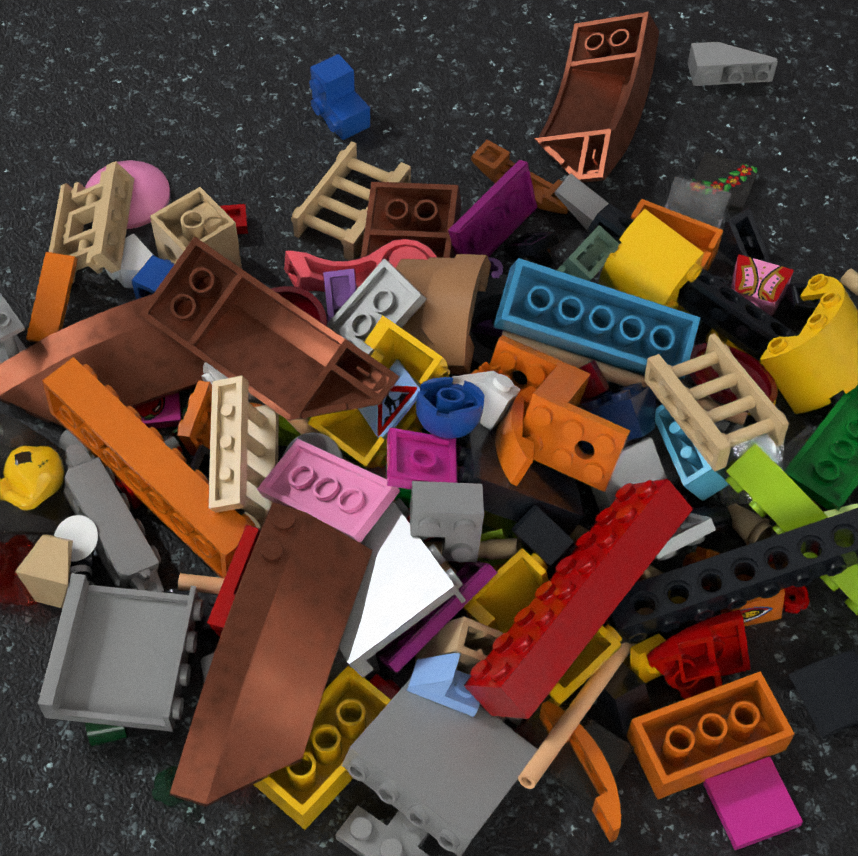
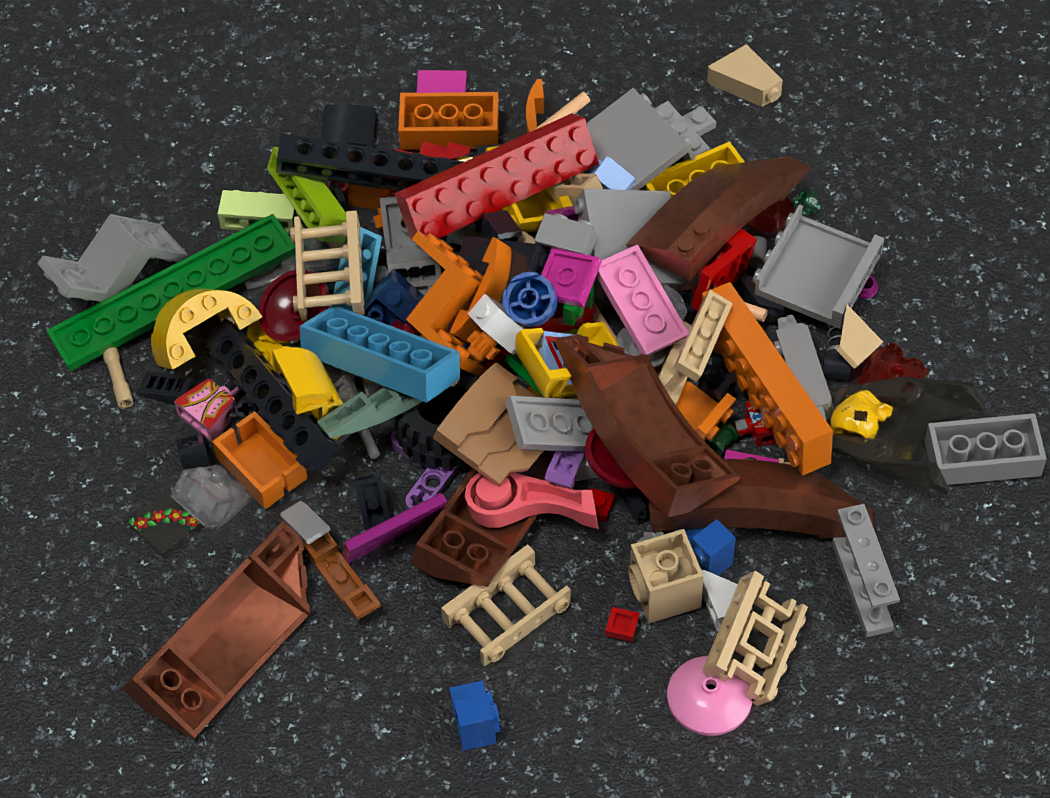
camera: 155 degrees left, 0 degrees up
(52, 296) = (806, 581): orange tile -> none
(82, 532) = (831, 359): white sticker -> none
(725, 64) = (85, 642): light grey slope -> none

